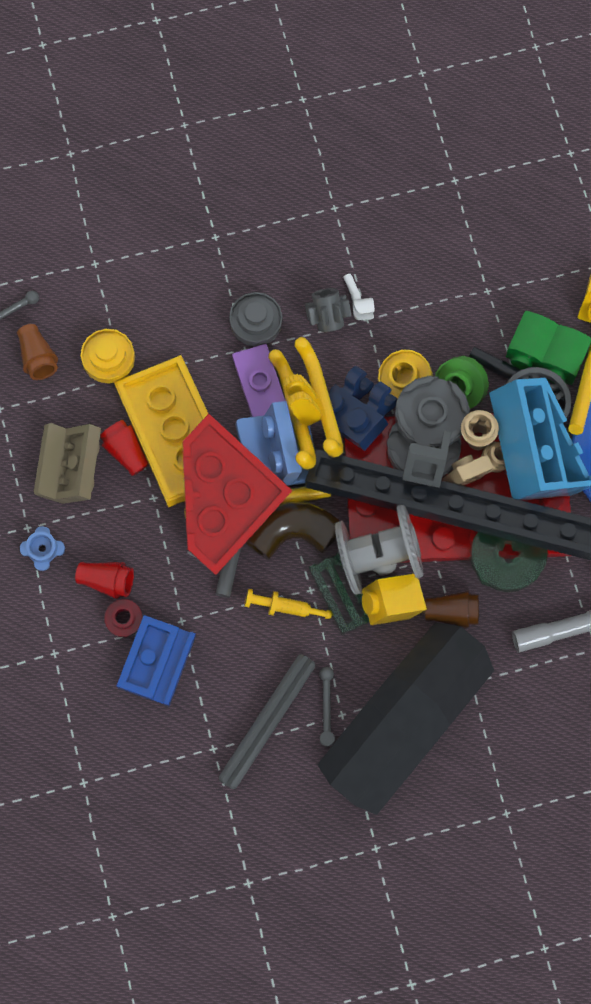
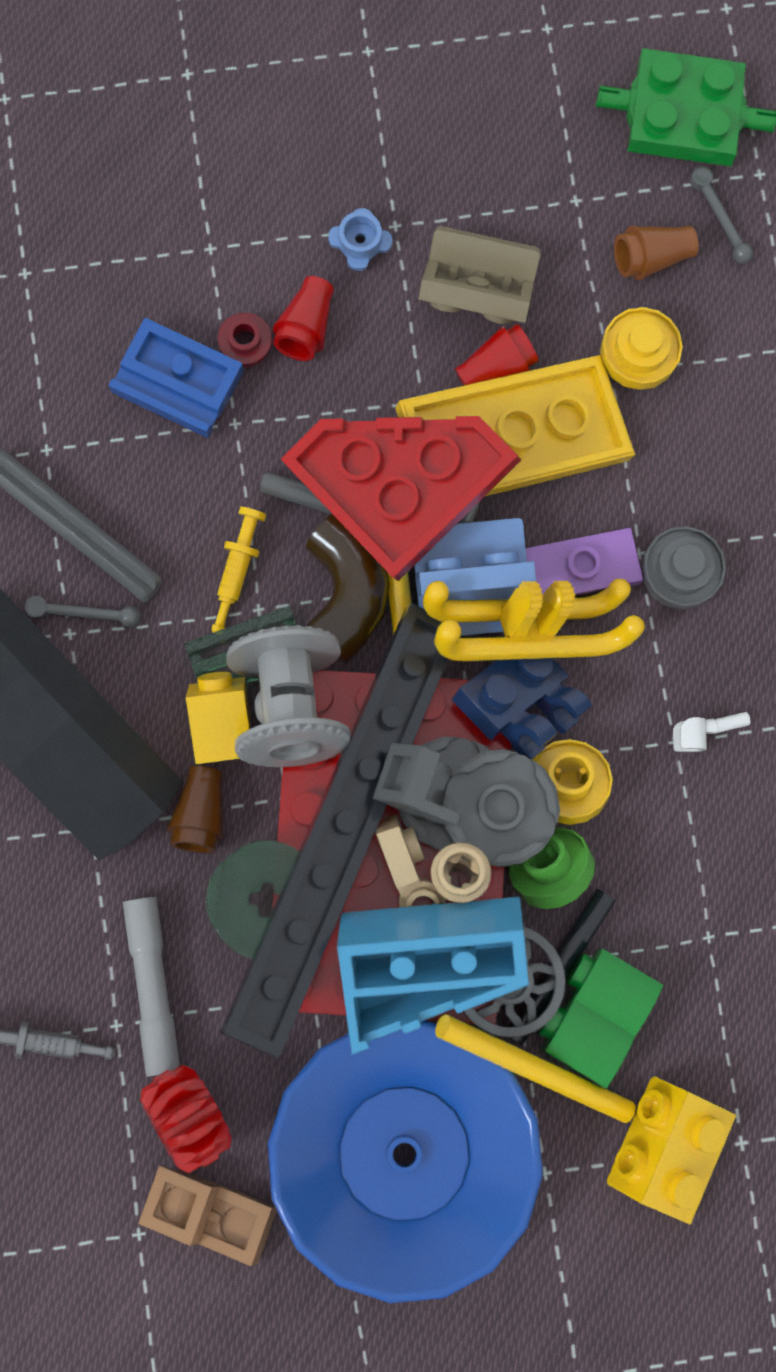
camera: 95 degrees right, 5 degrees up
(328, 309) = (689, 676): dark grey gear -> none

